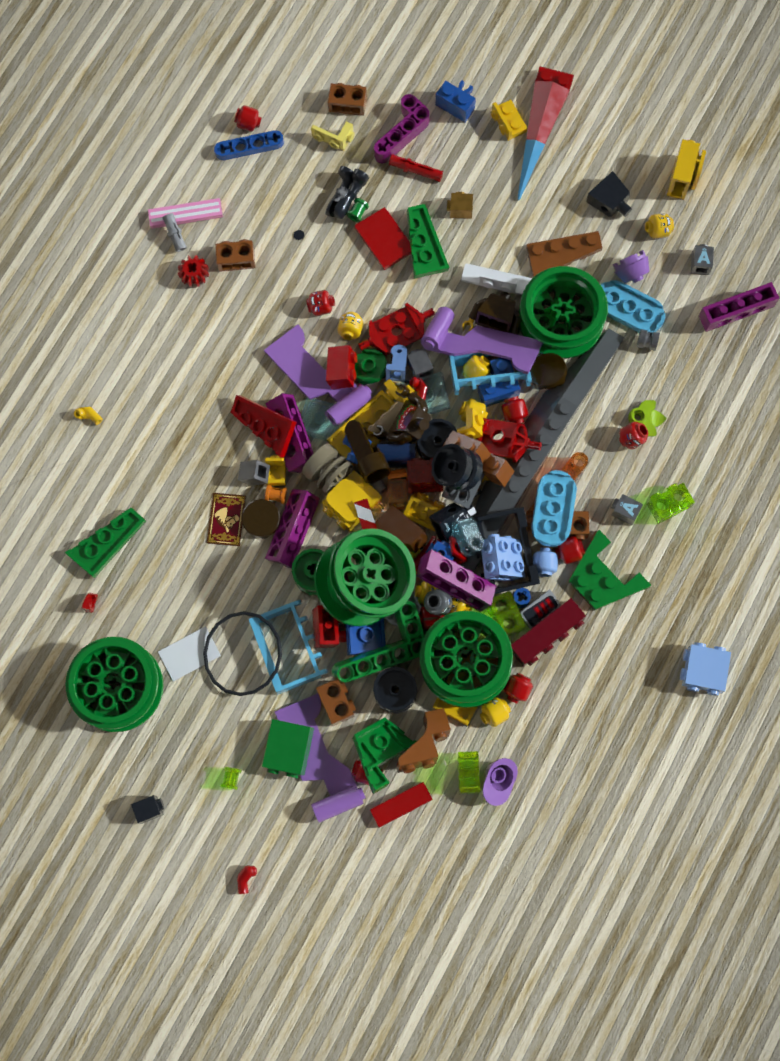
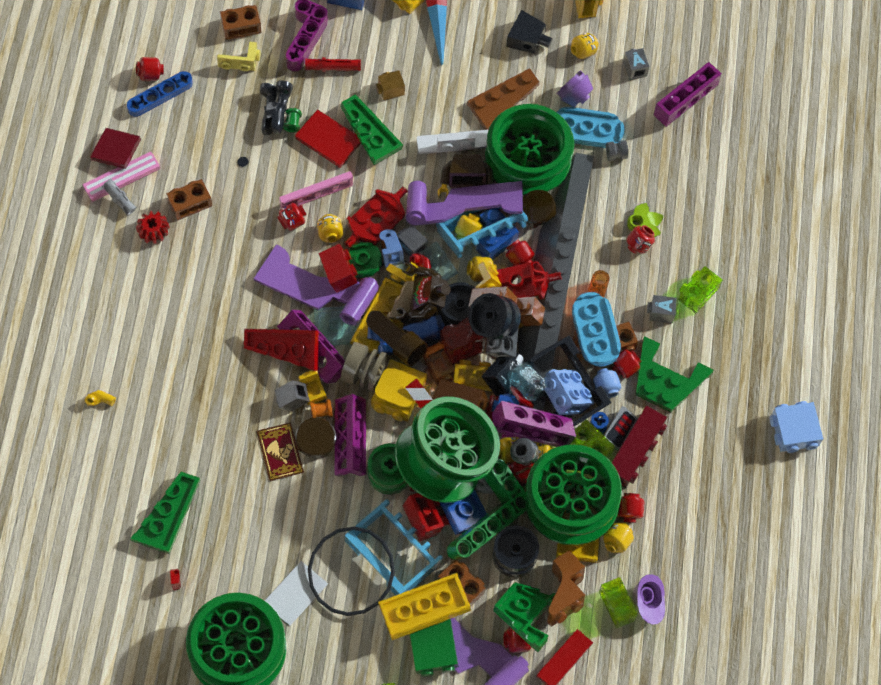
camera: 30 degrees left, 10 degrees down
(189, 184) = (115, 148): none -> dark red tile
(291, 712) = (424, 606): none -> yellow tile
(353, 285) = (318, 190): none -> bright pink tile

